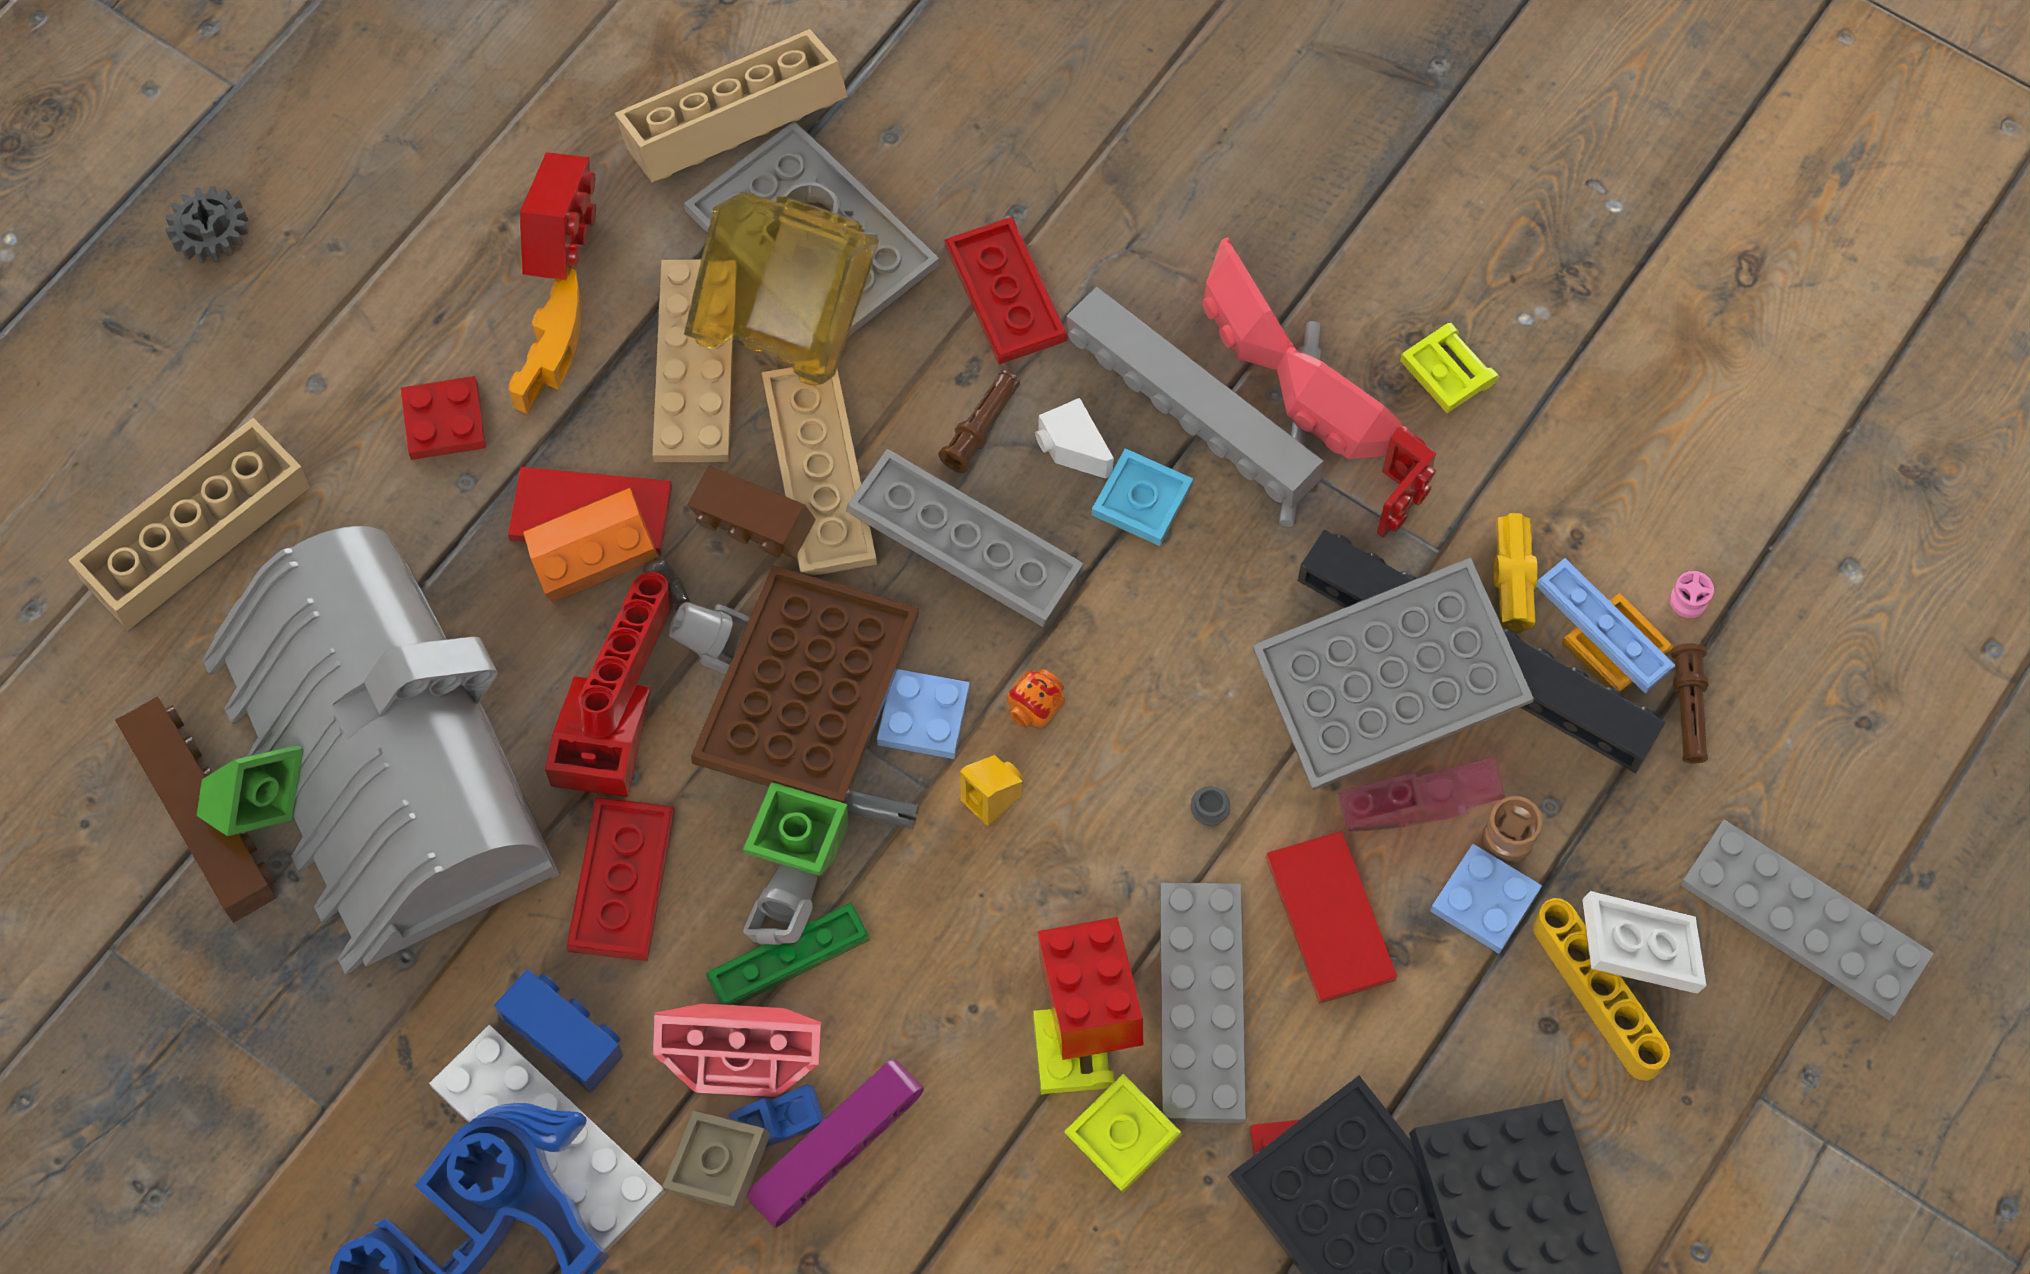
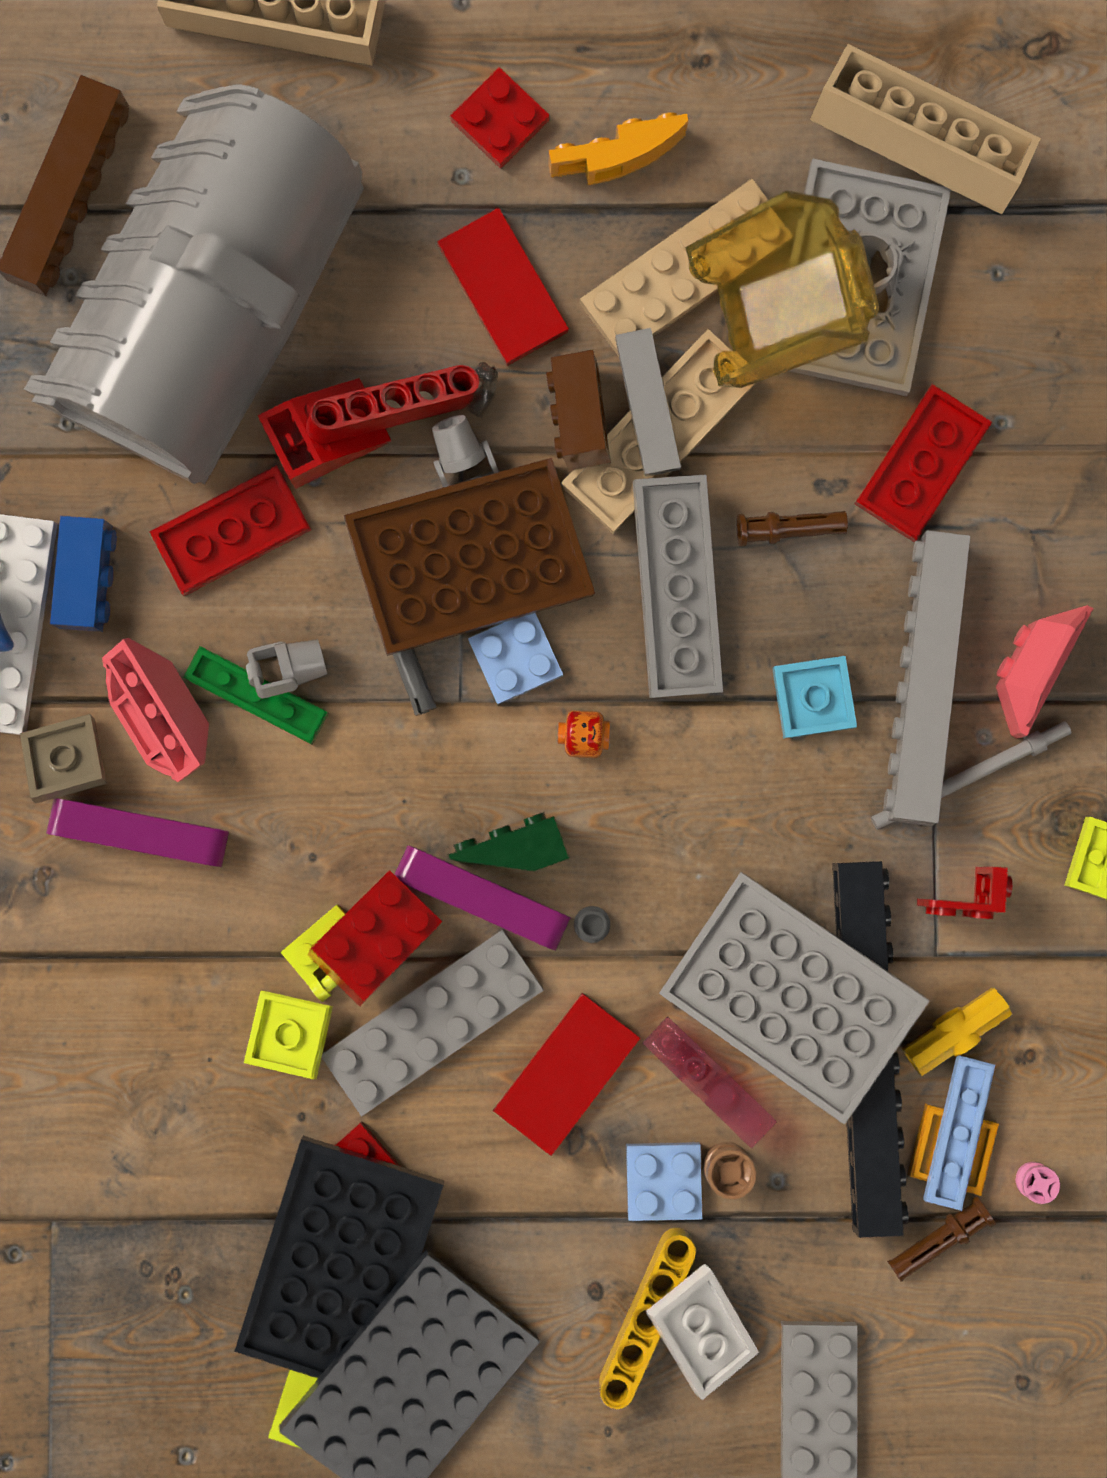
camera: 50 degrees right, 20 degrees up
(251, 791) = (83, 219): bright green slope -> none
(557, 216) = (719, 69): red brick -> none
(590, 545) = (467, 307): orange slope -> none
(783, 1116) = (132, 778): blue slope -> none
(787, 456) = (647, 402): none -> light grey tile
(798, 829) = (342, 636): bright green slope -> none
(990, 787) = (486, 752): yellow slope -> none
(1074, 439) = (825, 609): white slope -> none
(1097, 812) = (526, 848): none -> dark green slope
(1122, 877) = (482, 898): none -> magenta beam
(1334, 408) = (995, 798): coral wedge -> none

